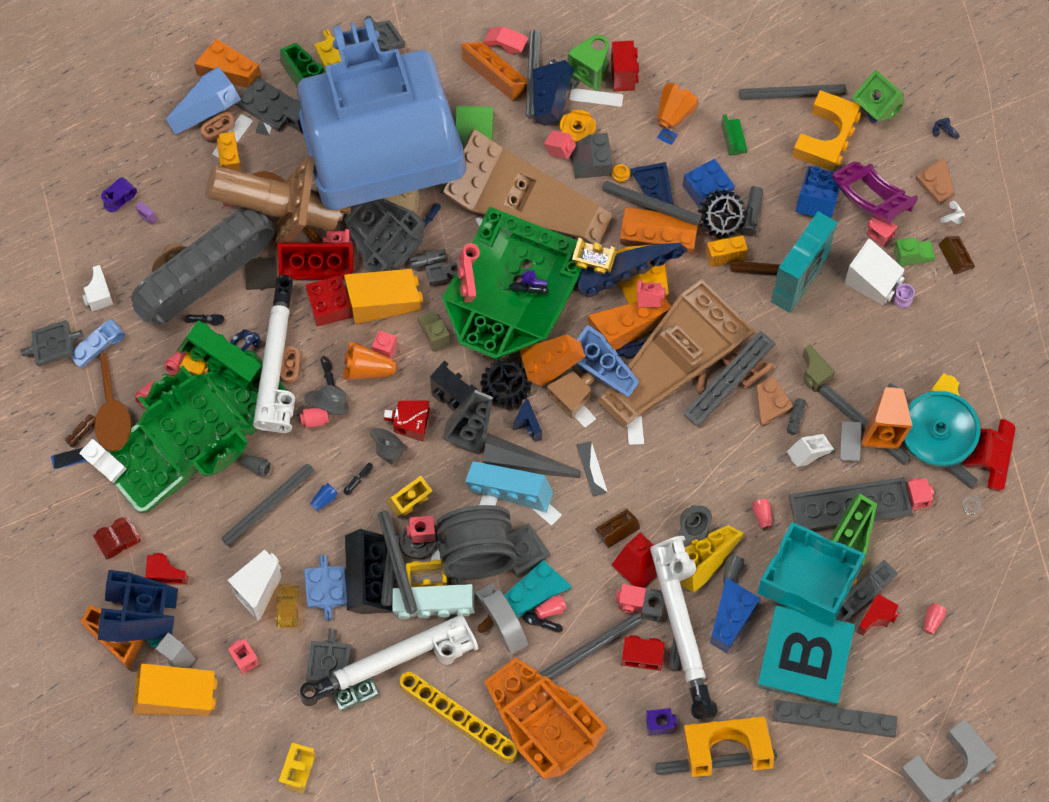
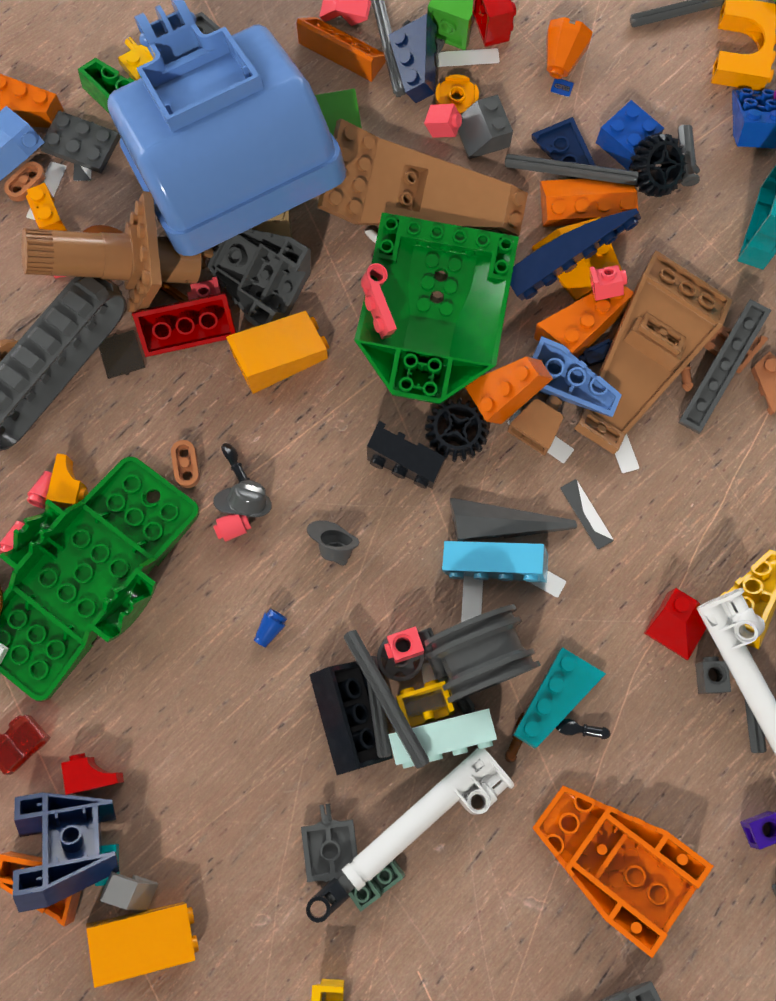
camera: 15 degrees left, 10 degrees up
(214, 319) = (76, 425): black piece -> none
(219, 354) = (92, 474): green wedge -> none
(246, 663) = (216, 878): coral brick -> none
(250, 337) = (126, 441): dark blue piece -> none
(256, 583) = (212, 769): white slope -> none
(257, 465) = (175, 604): dark grey cone -> none
(267, 504) = (200, 654): dark grey axle -> none
(269, 405) = (172, 528): white piece -> none
(287, 606) = (259, 786): clear yellow slope -> none
(292, 117) = (112, 149): dark grey brick -> none
(325, 587) = (301, 747): medium blue plate -> none
(329, 300) = (213, 371): red brick -> none
(356, 479) = (304, 596): black piece -> none
(366, 363) = (280, 443): orange cone -> none
(385, 344) = (296, 414): coral brick -> none
(408, 496) = (377, 604): yellow brick -> none
(410, 418) = (350, 501): red torso -> none
(428, 259) = (321, 293): dark grey pin -> none
(434, 210) = (312, 234): dark blue piece -> none
(434, 330) = (352, 381): olive arch -> none
(438, 273) = (339, 309): dark grey plate -> none
(461, 726) = (523, 896): yellow beam -> none
(469, 422) = (430, 493): dark grey wedge -> none
(503, 618) = (535, 738): light grey arch -> none
(520, 287) = (442, 305): black piece -> none
(527, 419) = (495, 467): dark blue slope -> none
(528, 549) = (541, 634): dark grey plate -> none
(529, 278) = (452, 291): dark purple plate -> none
(551, 607) = (590, 708): coral cone -> none
(592, 646) = (650, 748): dark grey axle -> none
(594, 256) = (529, 249): yellow window -> none
(618, 528) = (639, 583): reddish brown slope -> none
(620, 173) = (522, 141): light orange plate -> none
(630, 598) = (683, 674): coral brick -> none
(643, 653) = (718, 743): red brick -> none
(695, 523) = (733, 559): dark grey piece -> none
(726, 250) = (673, 209): light orange brick -> none
(733, 136) = (638, 71): green panel -> none
(754, 267) = (712, 222): reddish brown axle -> none

